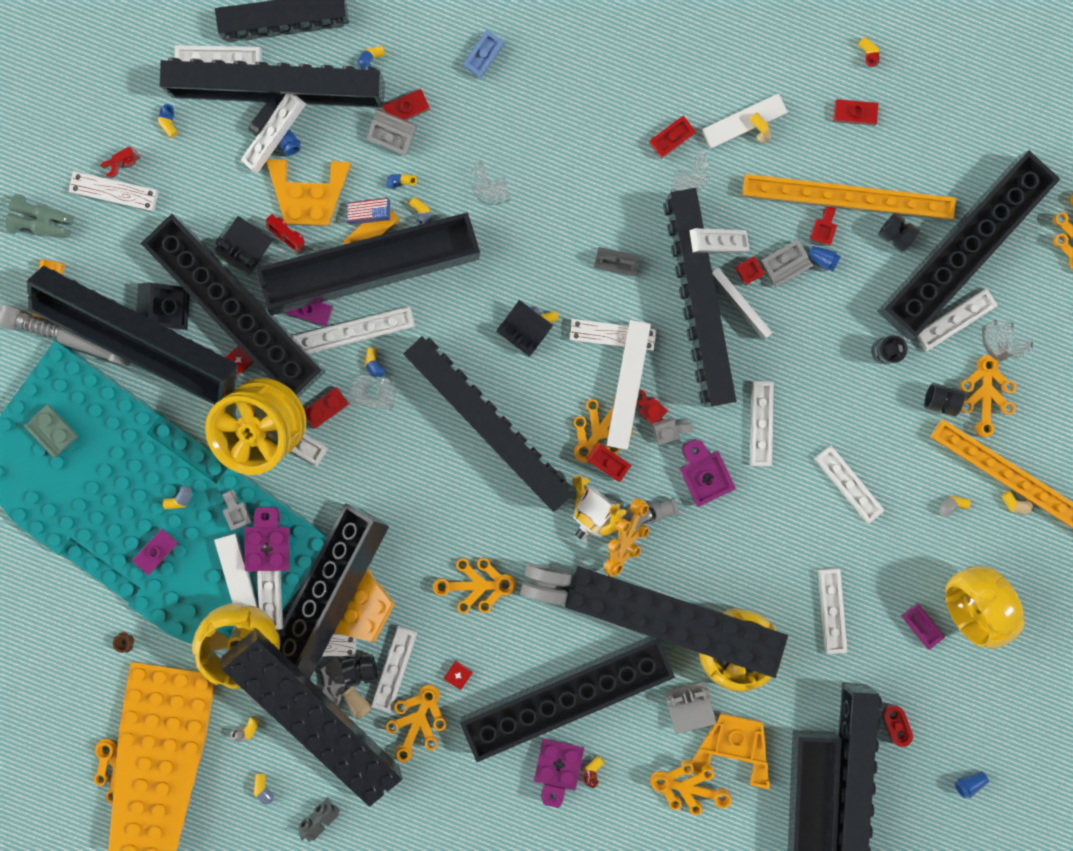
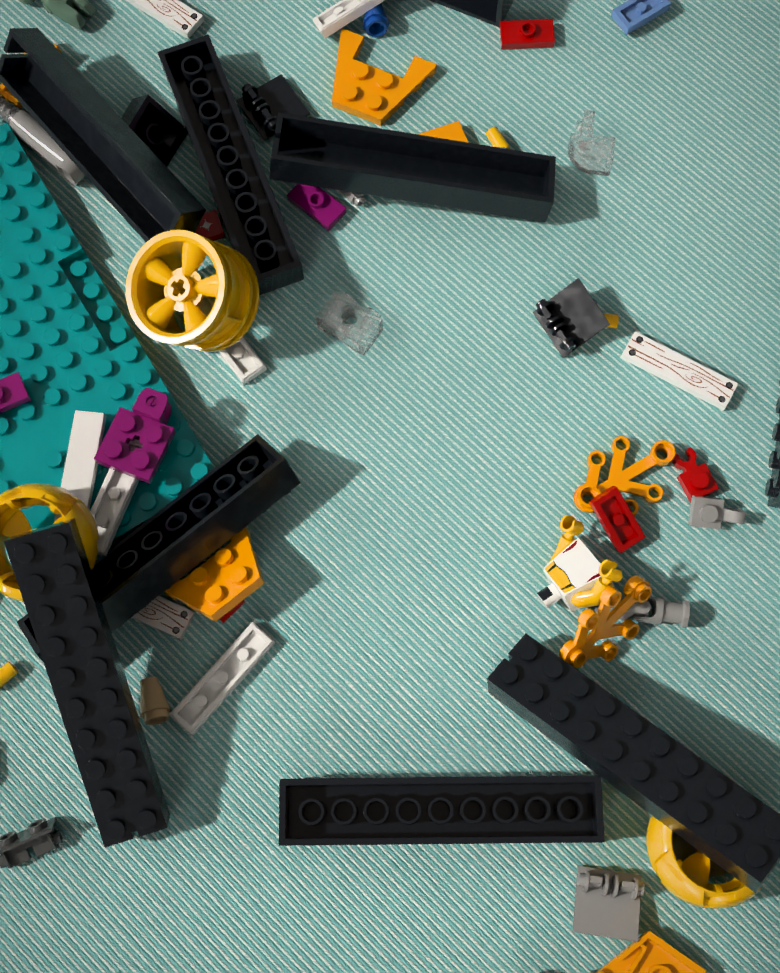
camera: 20 degrees right, 15 degrees down
(180, 500) = (59, 348): sand blue arm -> none
(236, 514) = (118, 389): light grey plate -> none
(285, 234) = (323, 103): red plate -> none
(326, 407) = (285, 320): red plate -> none
(333, 680) = (140, 657): light grey tile -> none
(356, 330) = (364, 248): white tile -> none
(359, 670) = (172, 656): black wheel -> none
(368, 211) = (436, 121): tile -> none
(371, 364) = (363, 290): arm -> none
(391, 132) = (499, 49): light grey plate -> none
(405, 179) = (487, 103): arm -> none
(418, 720) = (224, 759): light orange plant -> none
(458, 675) = (303, 721): red tile -> none
(478, 584) = (380, 613): light orange plant -> none
(487, 423) = (482, 411): black brick -> none
(546, 583) = (474, 639): light grey wheel -> none
(556, 780) = (374, 925): magenta plate -> none
(590, 772) = (429, 940): arm -> none
(616, 261) = (716, 287): dark grey hinge -> none
(628, 385) = (678, 434): white tile -> none
(699, 464) = (740, 570): magenta plate -> none

